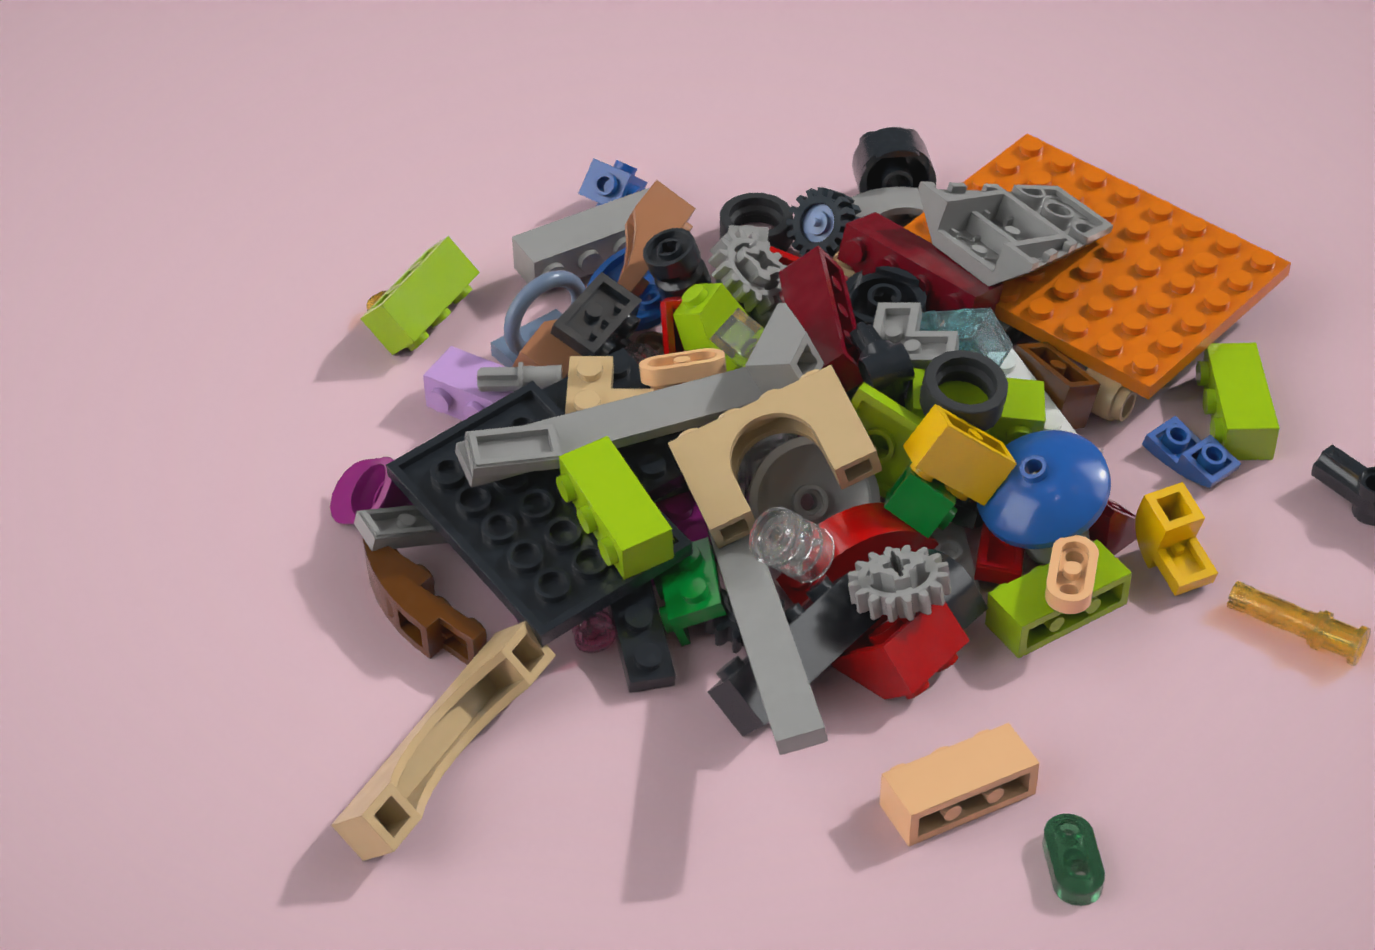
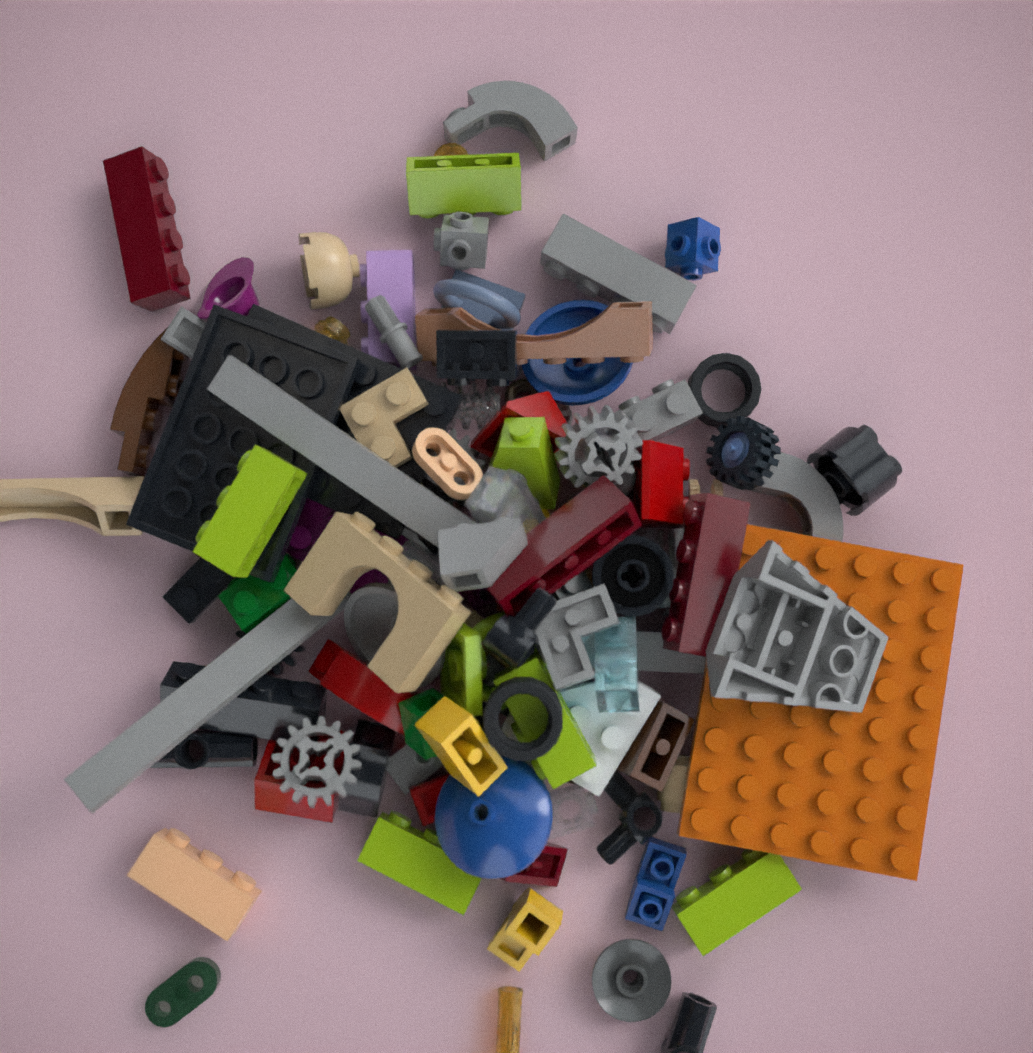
camera: 50 degrees right, 40 degrees up
(248, 524) = (147, 229): none -> dark red brick
(387, 240) = (516, 107): none -> light grey arch
(407, 412) = (327, 269): none -> tan cylinder
(472, 318) = (462, 241): none -> light grey brick
(513, 449) = (247, 403): light grey tile -> none
(675, 262) = (574, 380): black wheel -> none
(791, 544) = (311, 657): clear wheel -> none
(835, 696) = (220, 750): none -> black piece
(1071, 574) = (420, 880): light nougat plate -> none
(1120, 433) = (627, 832): none -> black axle
(1276, 499) = (635, 999): none -> dark grey dish

